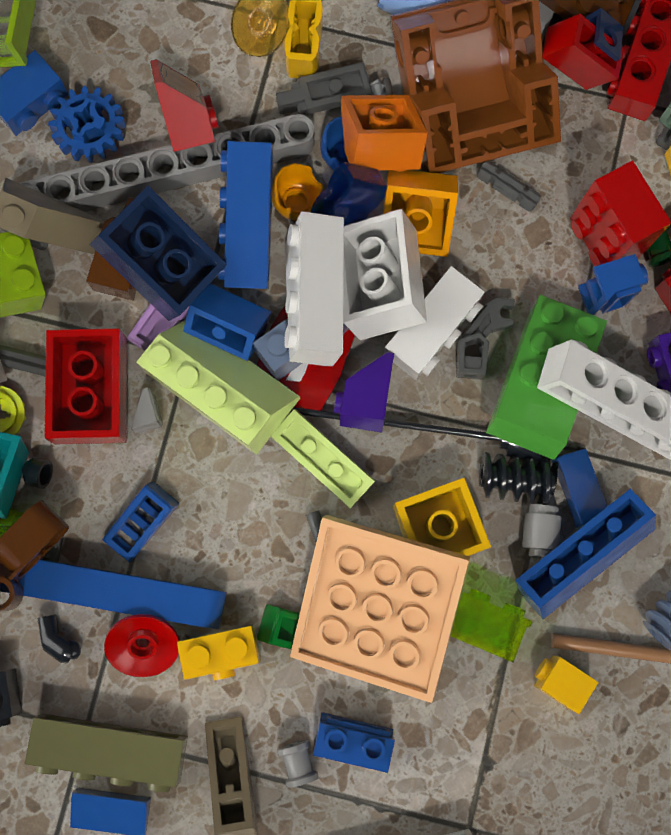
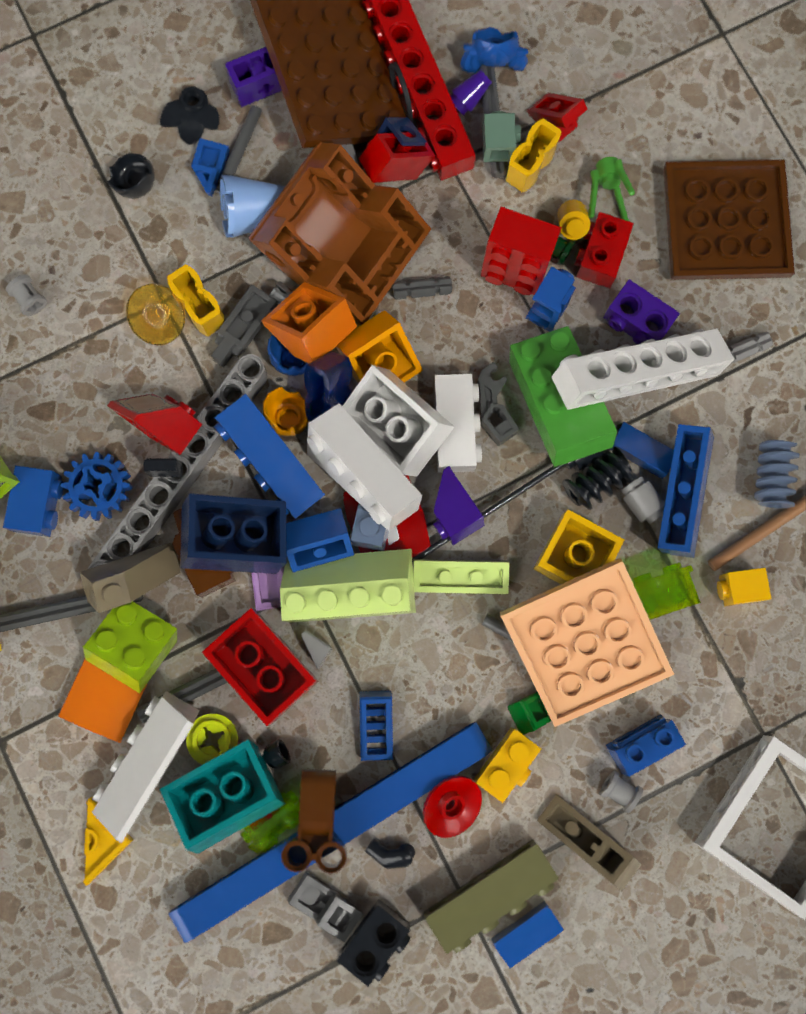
camera: 40 degrees left, 0 degrees up
(150, 149) = (163, 467): none -> black tile

